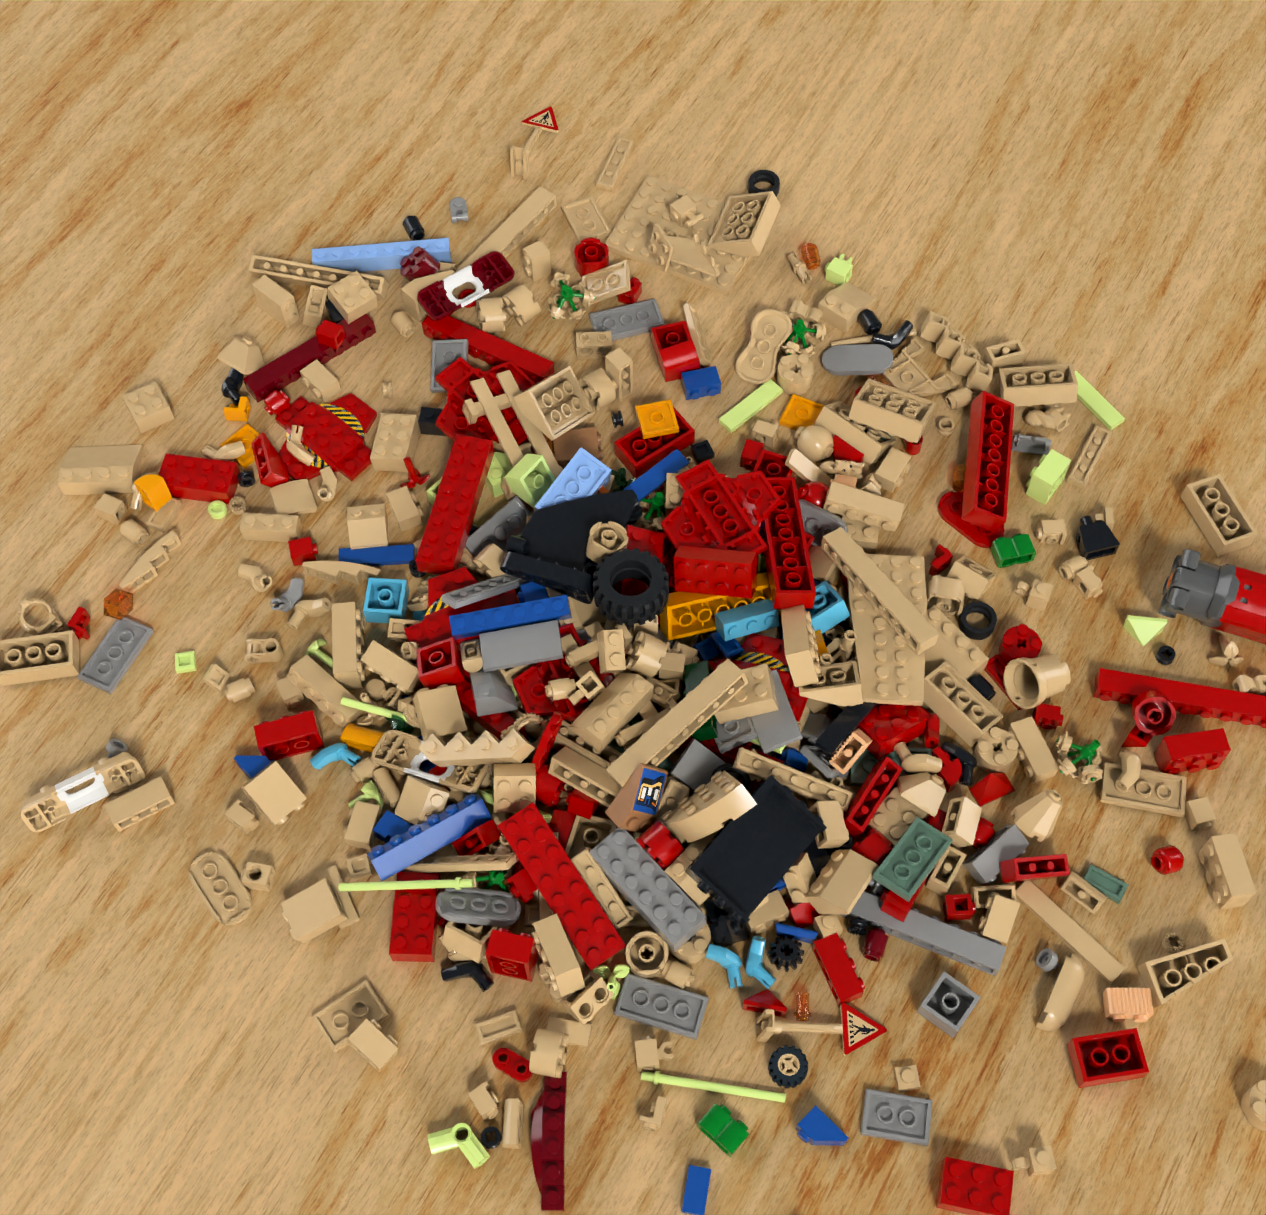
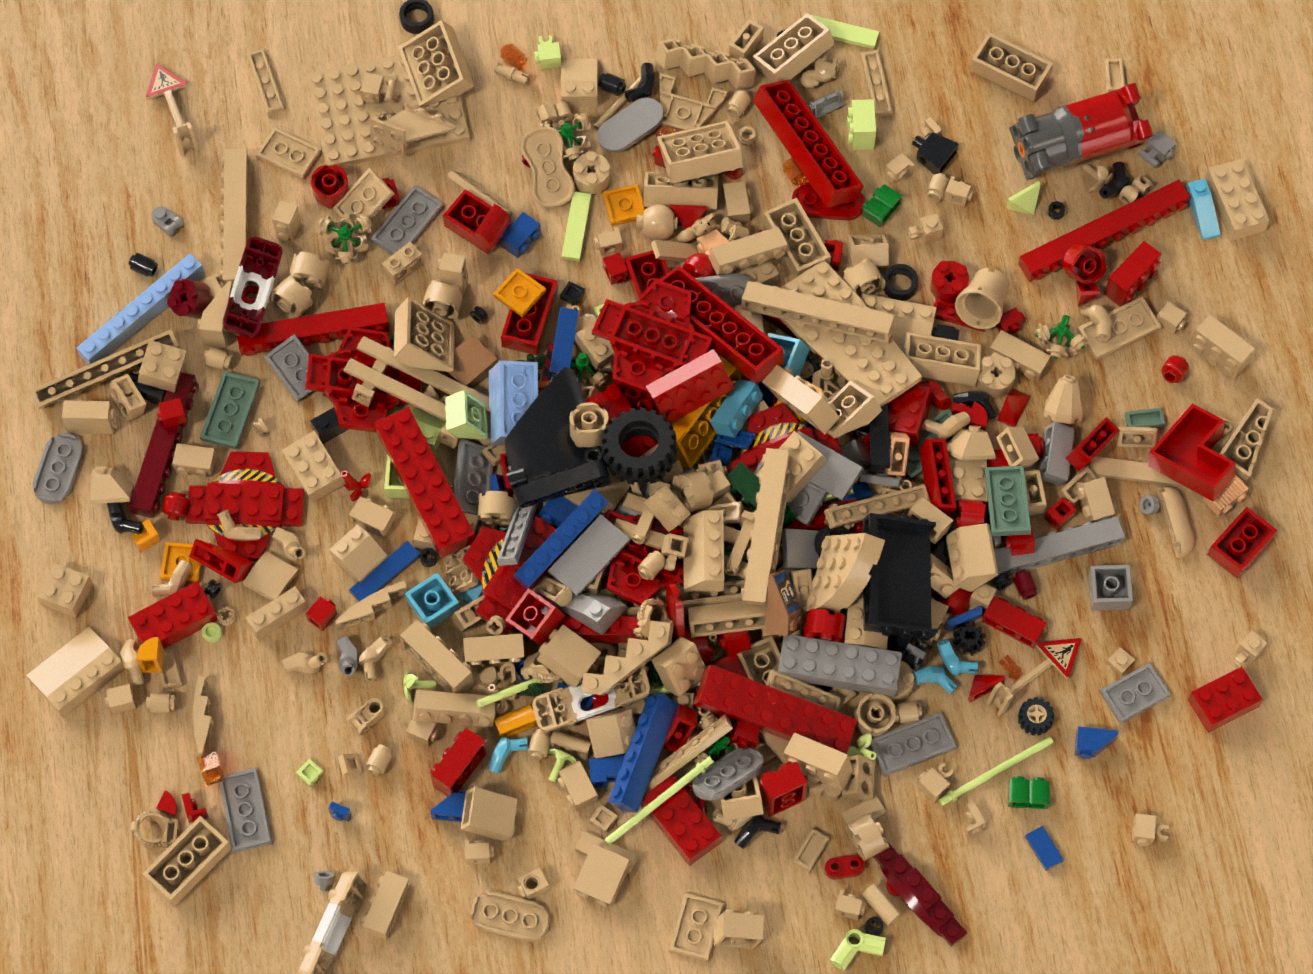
camera: 40 degrees left, 5 degrees up
(69, 607) = (167, 804): none -> red tile
(174, 706) = (339, 812): none -> blue plate
(228, 324) = (58, 468): none -> light grey tile
(378, 364) = (230, 410): none -> sand green plate
(918, 525) = (804, 244): none -> tan brick
(1117, 939) = (1187, 455): none -> red piece
(1247, 668) = (1120, 181): none -> black arm

